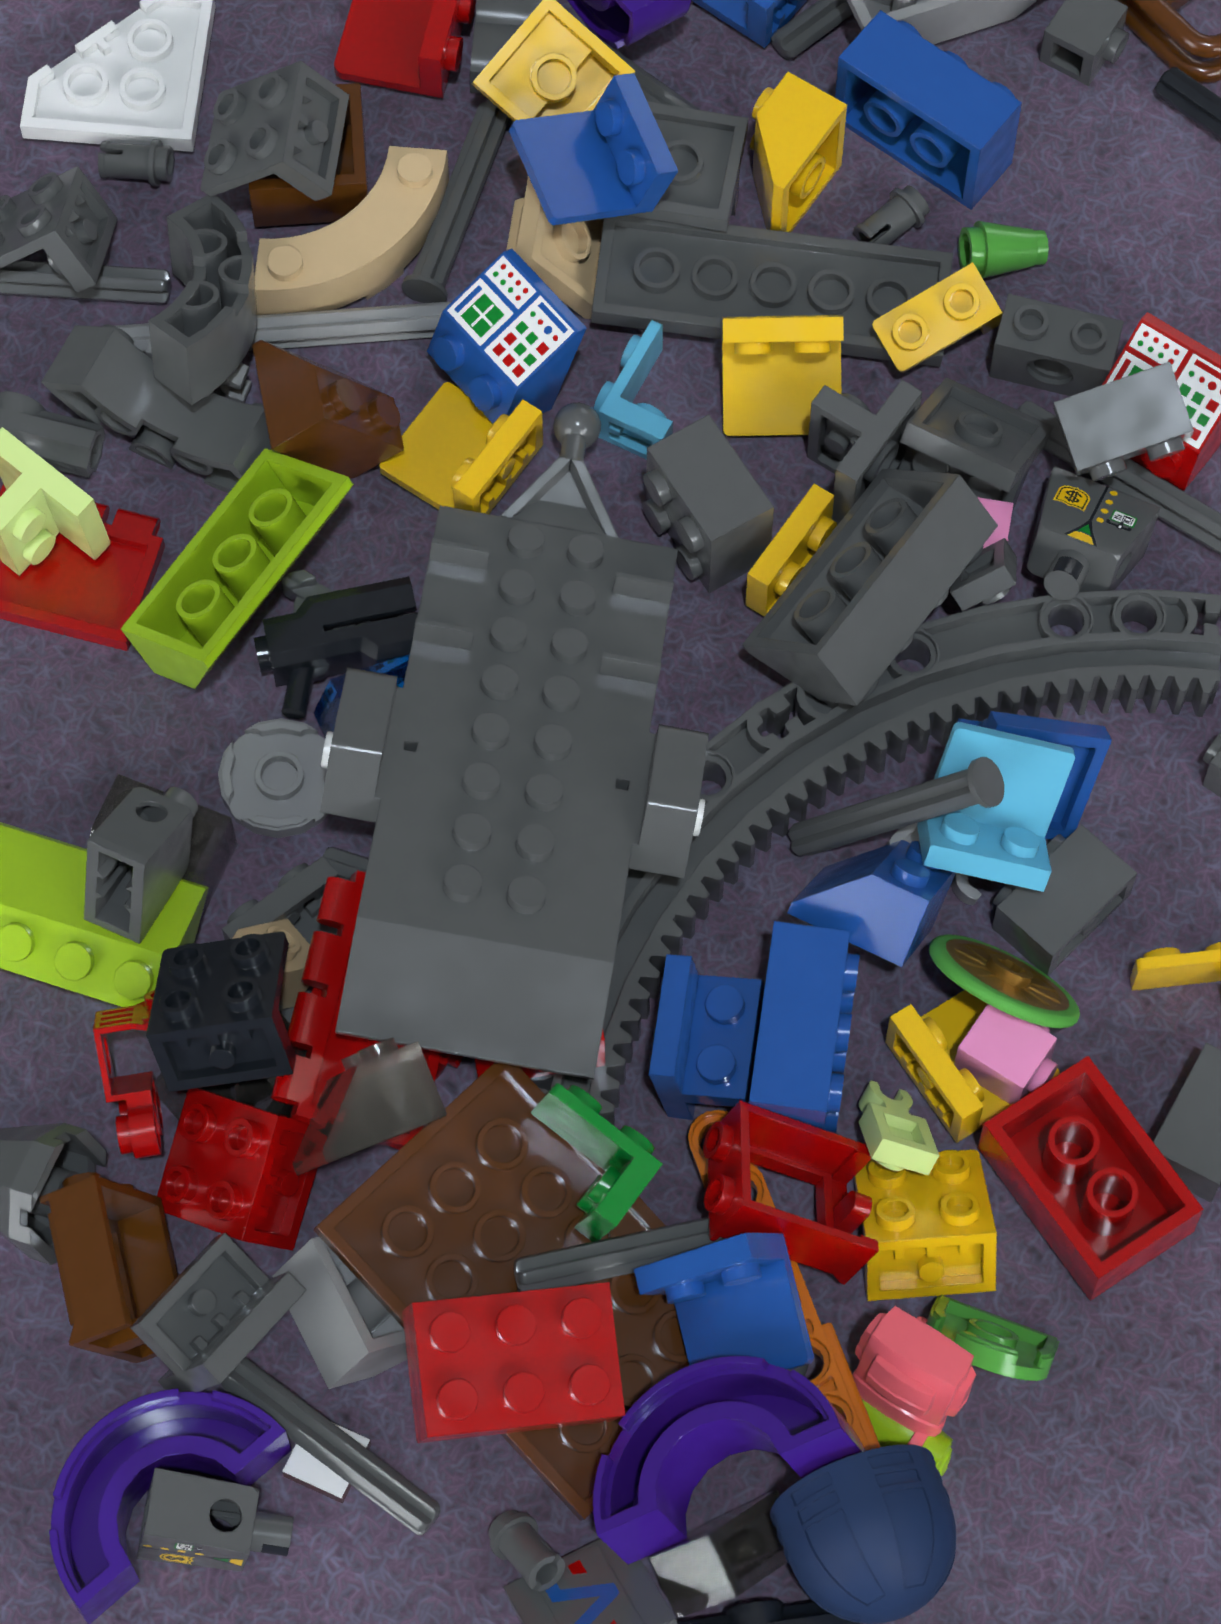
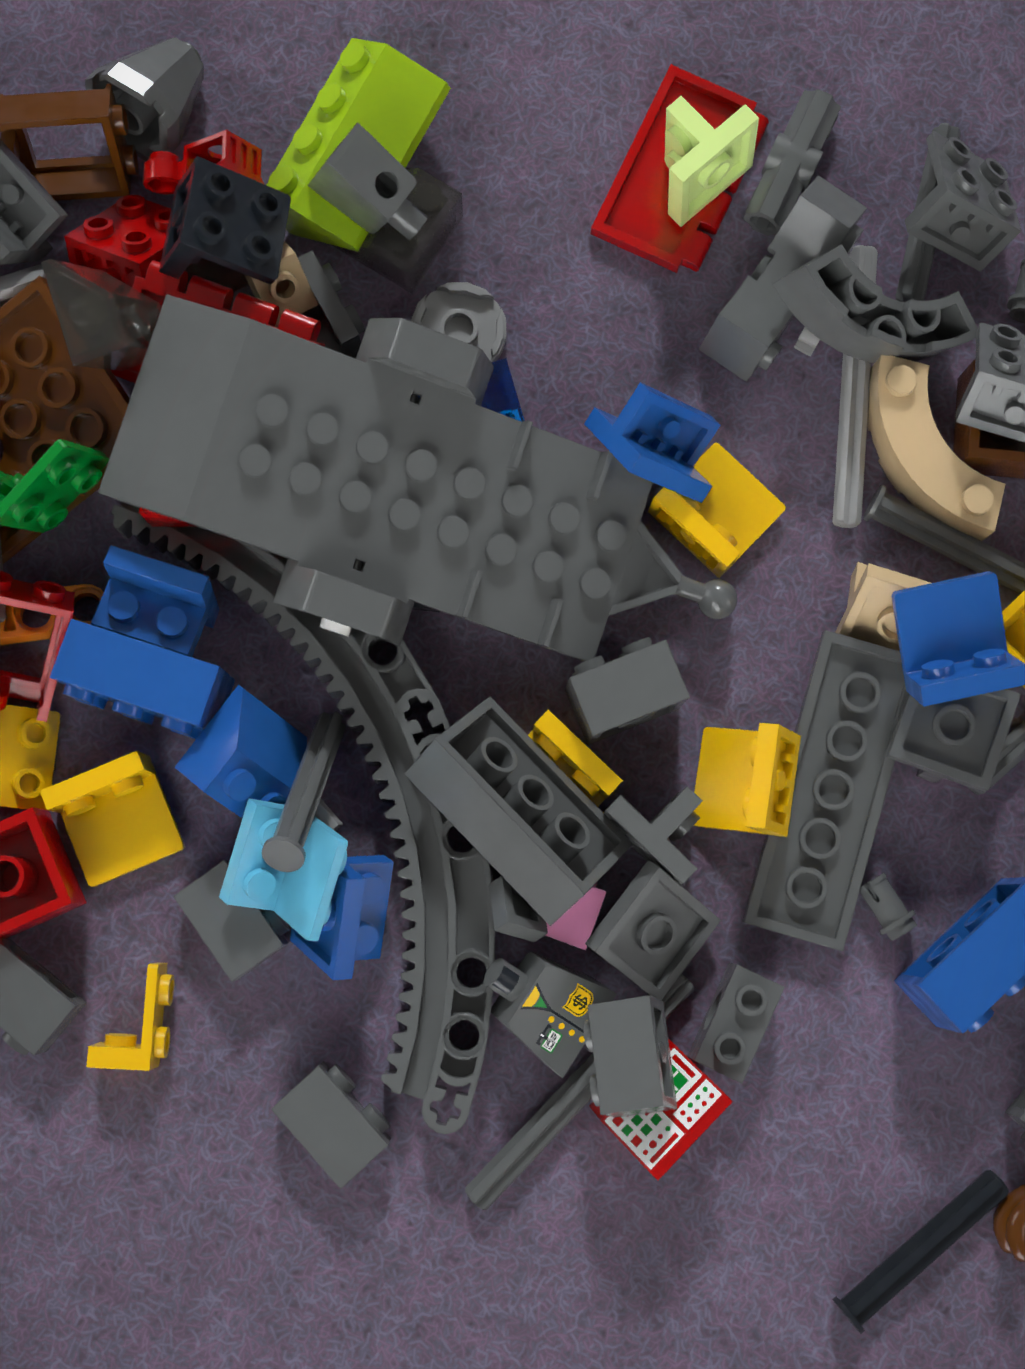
camera: 95 degrees right, 15 degrees up
(233, 565) = (631, 305): lime slope -> none
(324, 413) = (766, 395): reddish brown slope -> none
(333, 632) = (569, 378): black piece -> none
(406, 505) = (658, 440): none -> blue bracket
(507, 339) = (802, 551): slope -> none
(623, 422) = (746, 639): medium azure bracket -> none
(795, 148) = (956, 828): yellow slope -> none
(893, 1134) = (53, 740): yellowish green plate -> none
(938, 318) = (776, 925): yellow bracket -> none
(1001, 248) = (844, 996): bright green cone -> none
(1004, 981) = (158, 851): wheel -> none
(1007, 1054) = (100, 844): bright pink brick -> none

